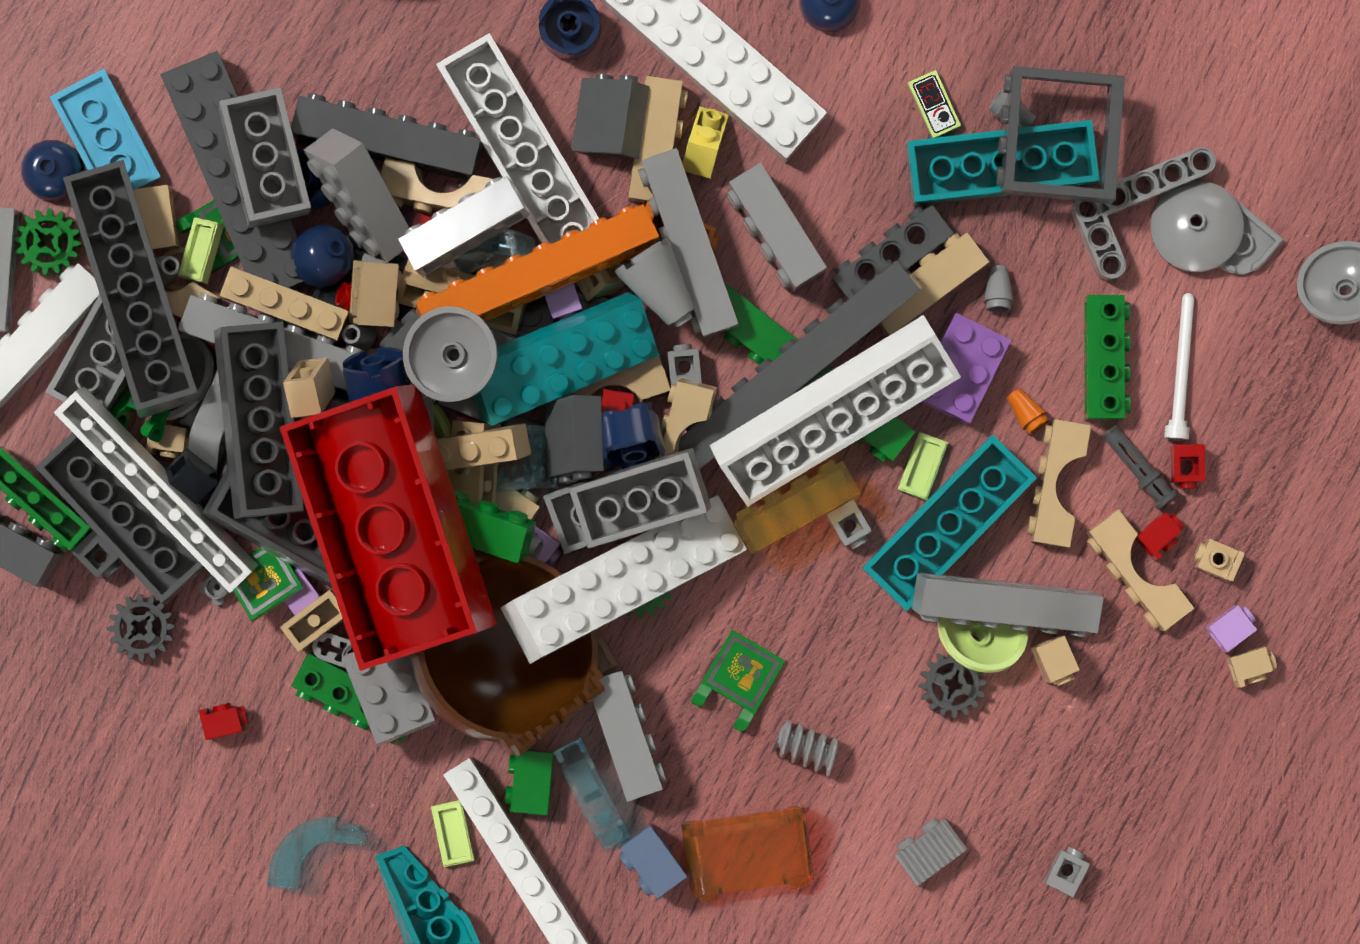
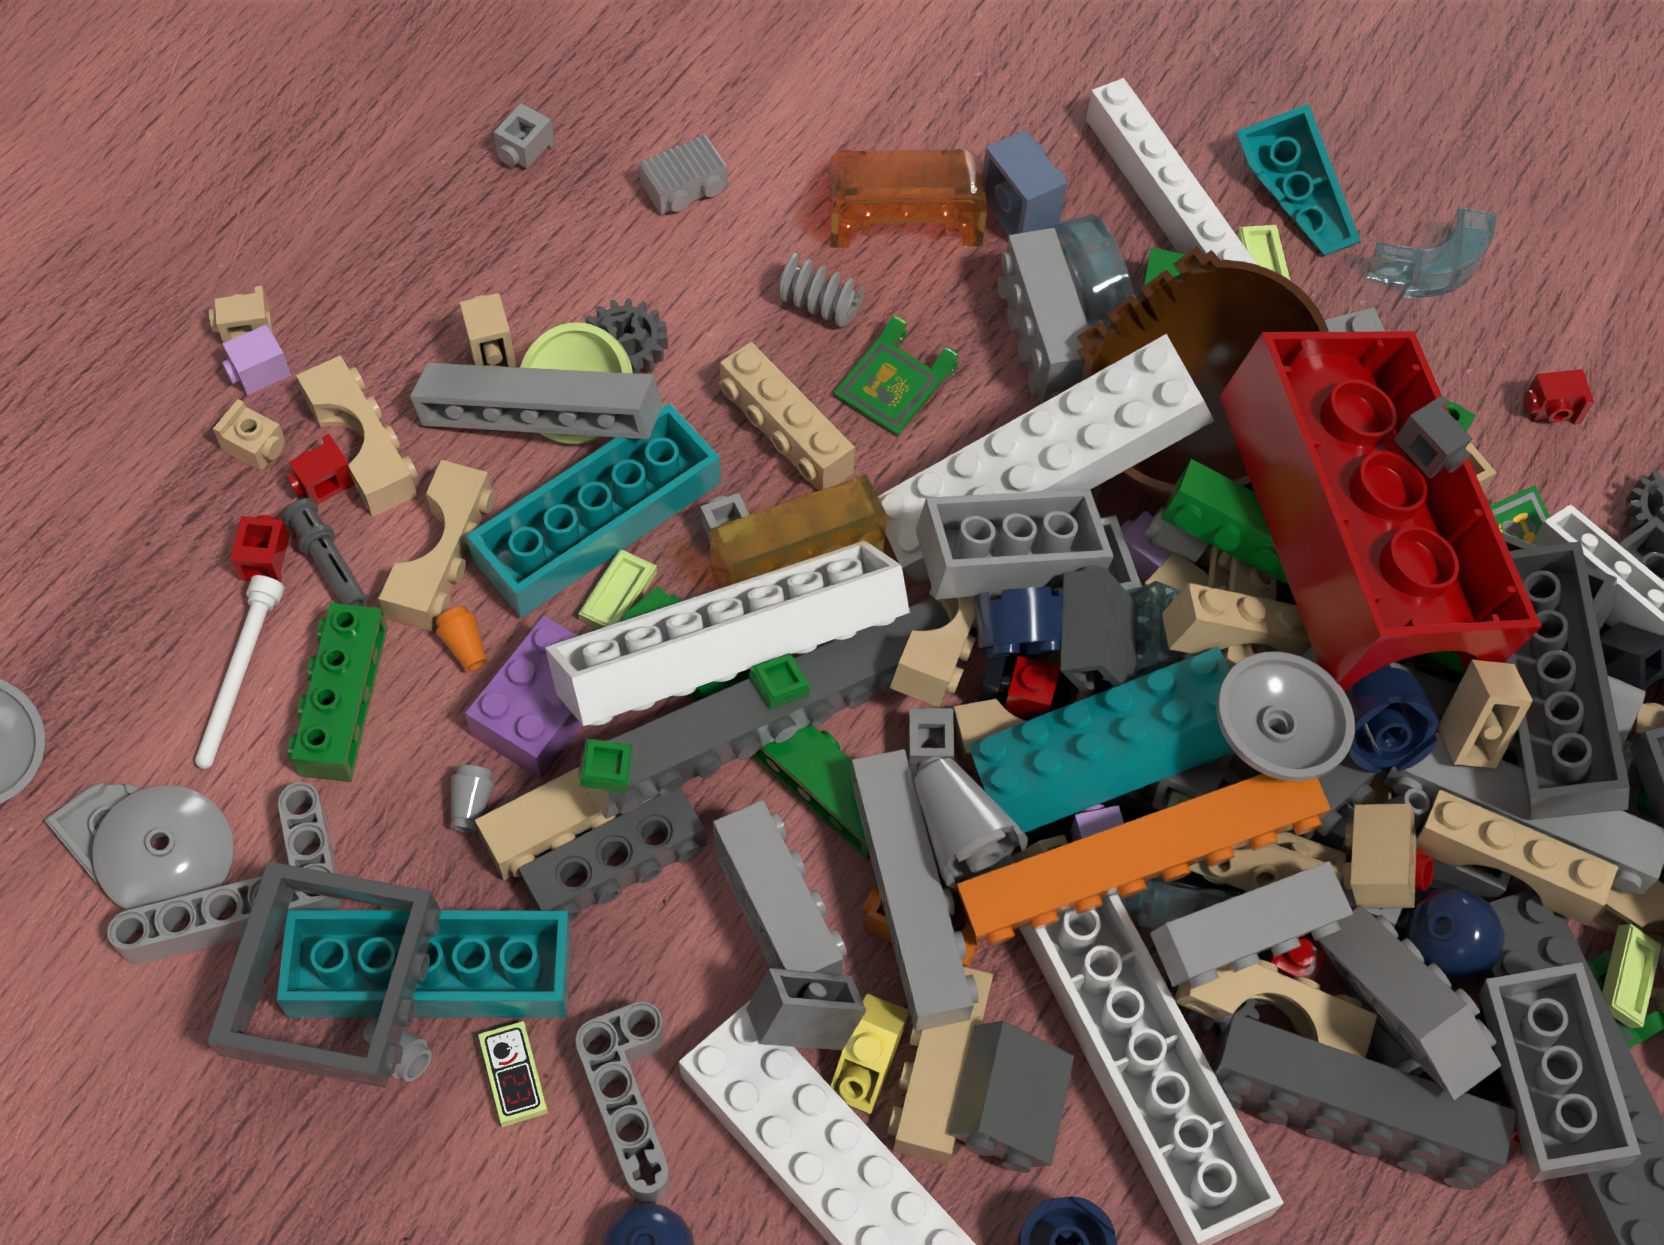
camera: 175 degrees left, 25 degrees down
(351, 560) = (1434, 439): none -> dark grey brick
(749, 147) = (805, 1009): none -> flat silver brick
(794, 373) = (779, 681): none -> green tile
(818, 625) = (786, 417): none -> tan brick
(853, 88) = (628, 1107): none -> light grey beam
(902, 279) = (606, 765): none -> green tile

